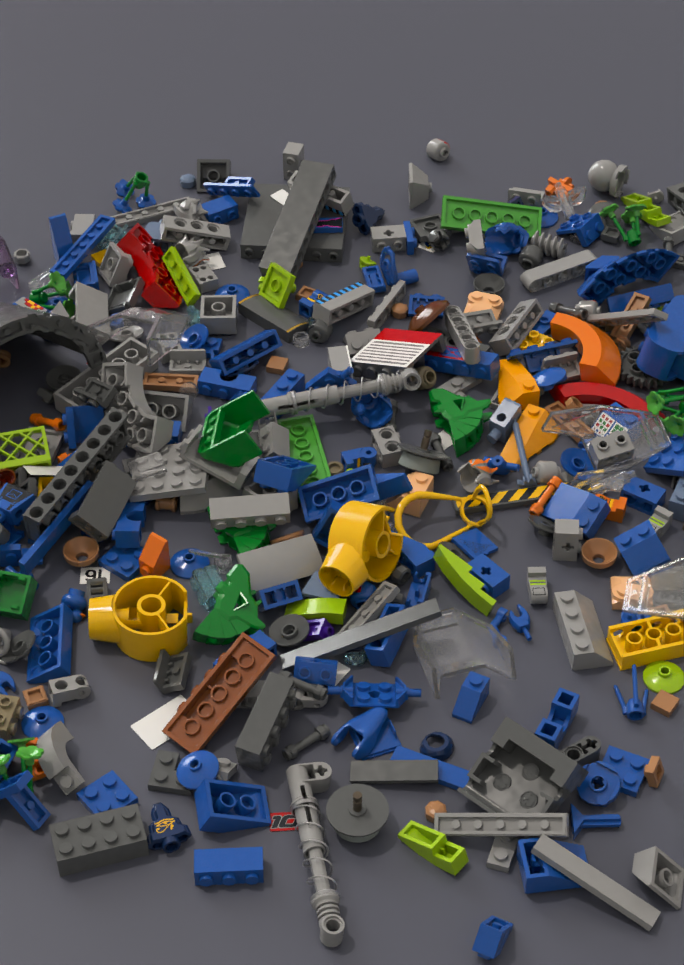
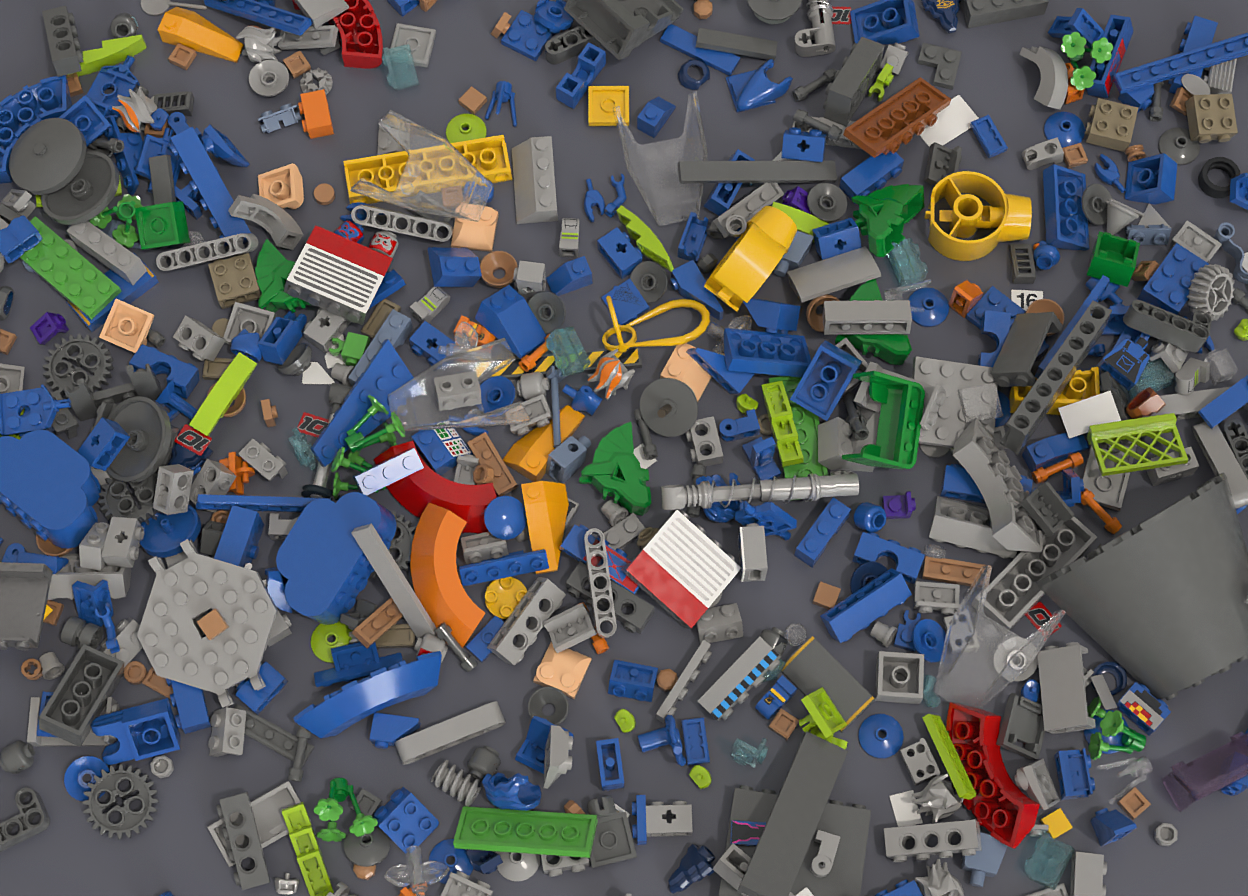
camera: 175 degrees left, 25 degrees up
(39, 269) = (1134, 803): none -> medium nougat tile
(83, 246) = (1084, 814): blue plate -> none
(106, 794) = (997, 46): blue plate -> none
(123, 704) = (988, 136): none -> blue plate
(192, 777) = (916, 50): blue dish -> none
(229, 341) = (884, 633): none -> light grey piece
(229, 747) = (884, 79): none -> lime plate
(271, 215) = (826, 853): none -> light grey leg
(320, 451) = (782, 423): none -> lime slope
(332, 266) = (747, 754): none -> clear light blue bracket
(336, 434) = (760, 455): none -> blue bracket
(374, 694) = (734, 113): blue plate -> none
(377, 575) = (736, 219): none -> light grey piece
(426, 314) = (636, 631): reddish brown dish -> none
(428, 287) = (625, 720): none -> lime piece
(436, 257) = (610, 764): none -> blue brick
(458, 239) = (572, 807): none -> medium nougat tile
(520, 488) = (567, 351): none -> clear light blue brick
(522, 703) = (603, 100): none -> yellow plate
(528, 554) = (570, 276): none -> blue slope
(543, 448) = (538, 412): none -> light grey bracket
(659, 379) = (388, 472): none -> brick

